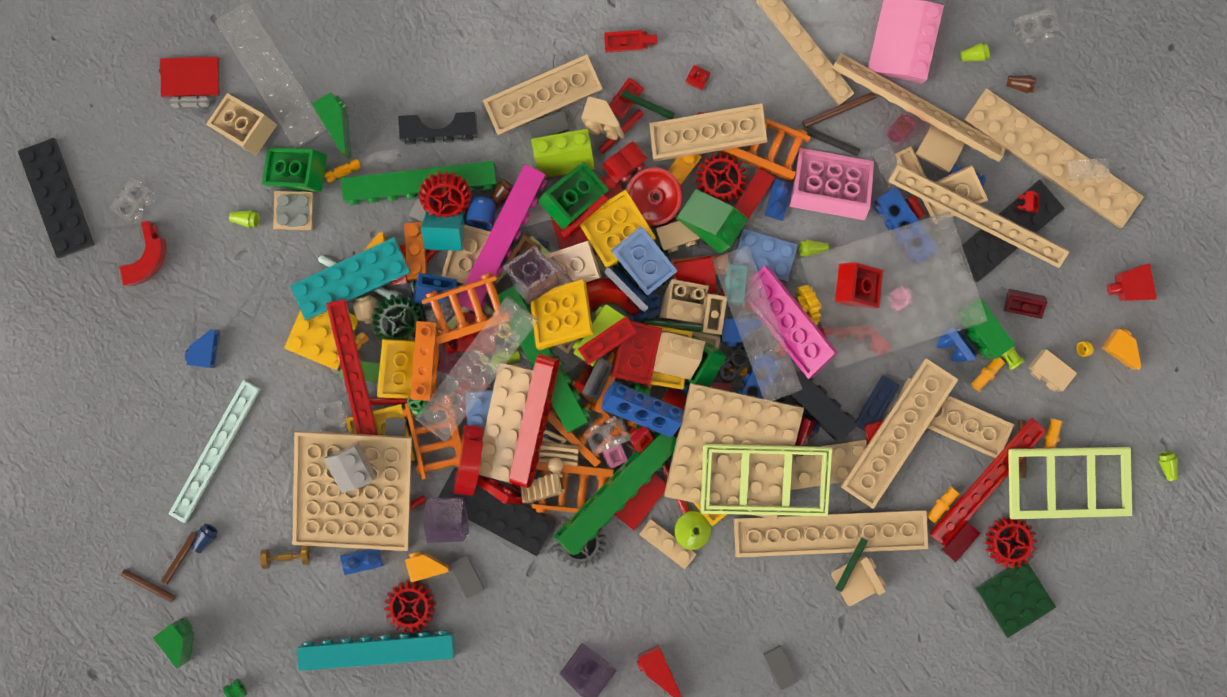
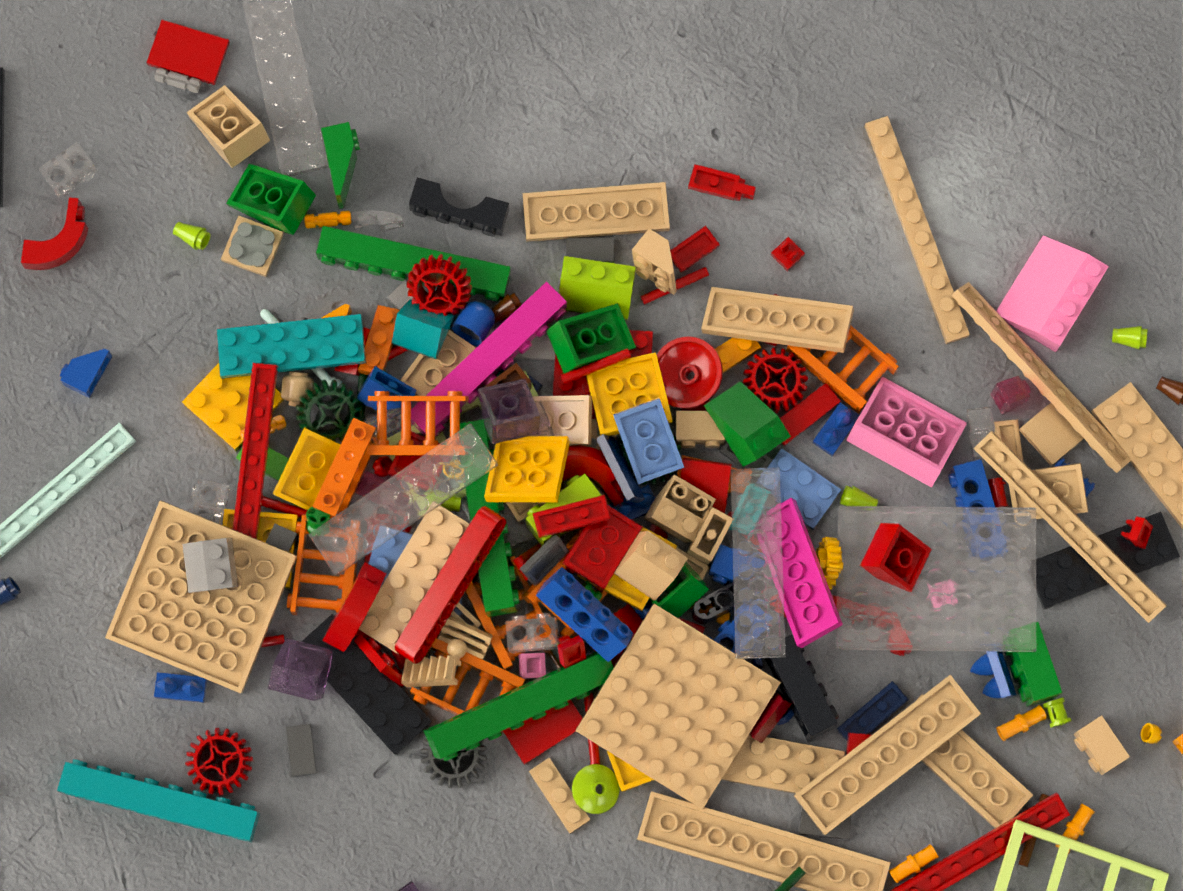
camera: 15 degrees right, 10 degrees down
(265, 558) = (67, 643): pearl gold wheel -> none
(424, 566) = (252, 718): light orange slope -> none
(625, 162) = (666, 322): red brick -> none
(647, 104) = (716, 264): dark green bar -> none
(674, 325) = (666, 534): dark green bar -> none
(785, 509) = (717, 797): yellowish green door -> none
(832, 141) = (924, 383): pearl dark grey bar -> none
(839, 109) = (944, 348): reddish brown bar -> none
(1025, 303) = (1095, 655): dark red slope -> none

